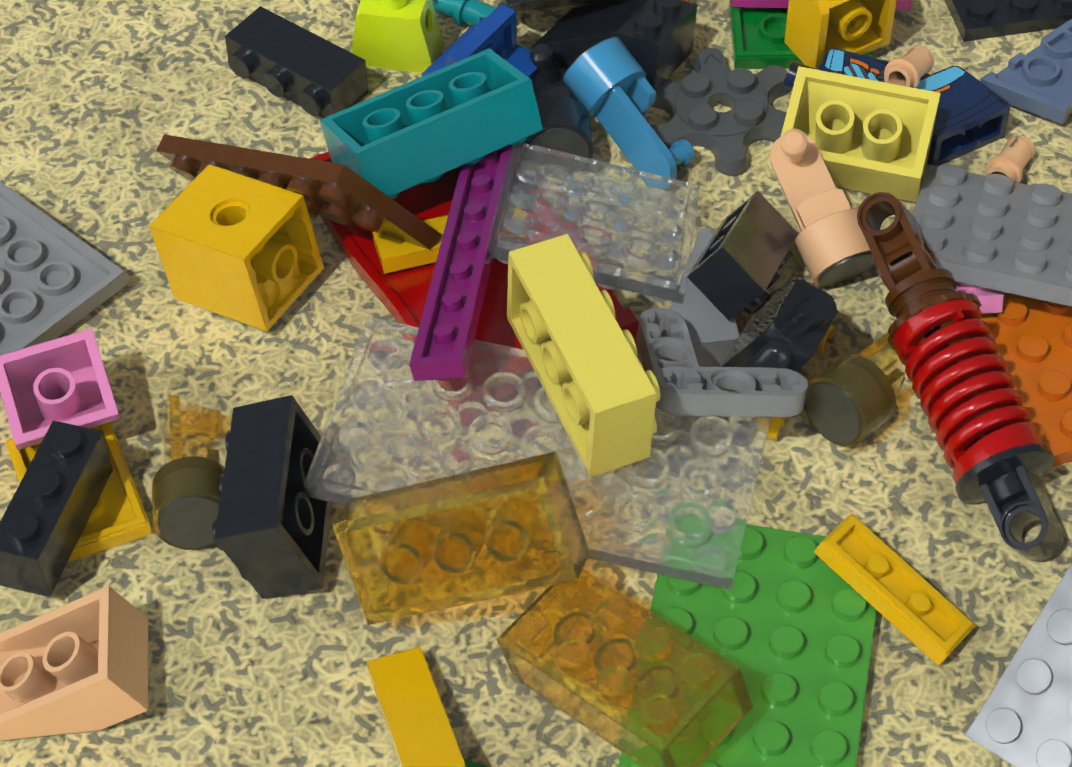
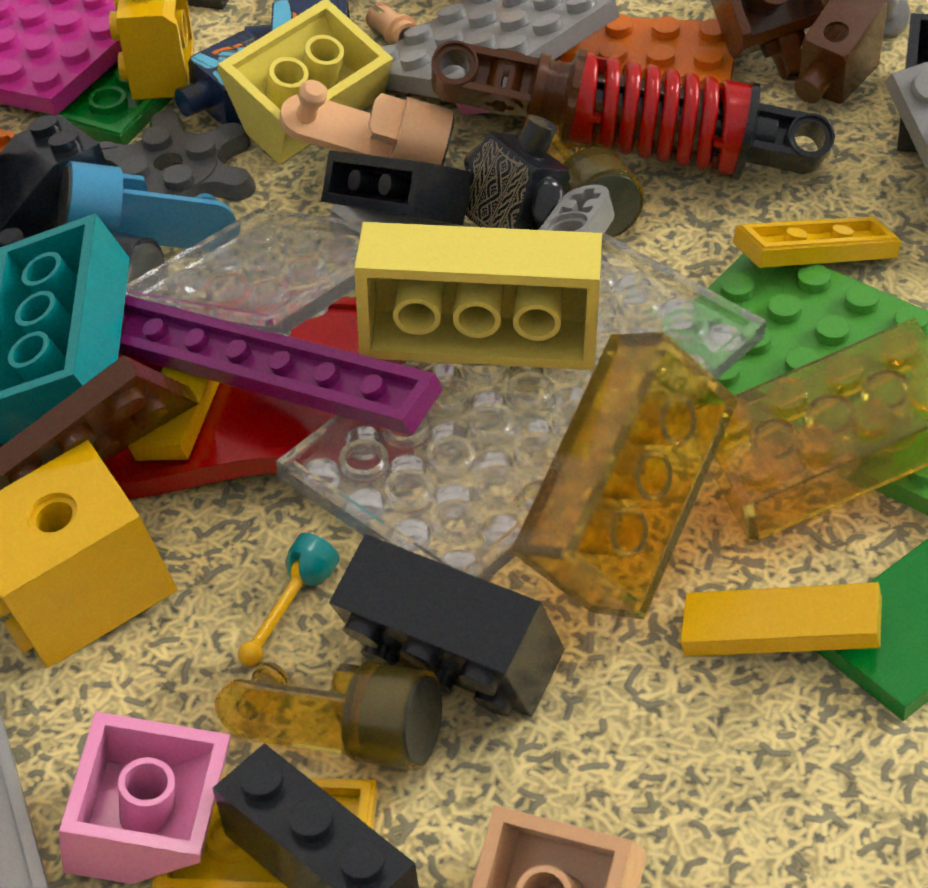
camera: 60 degrees left, 5 degrees down
(322, 395) = (306, 564): none -> hinge
(909, 68) = (258, 16): light nougat pin -> none

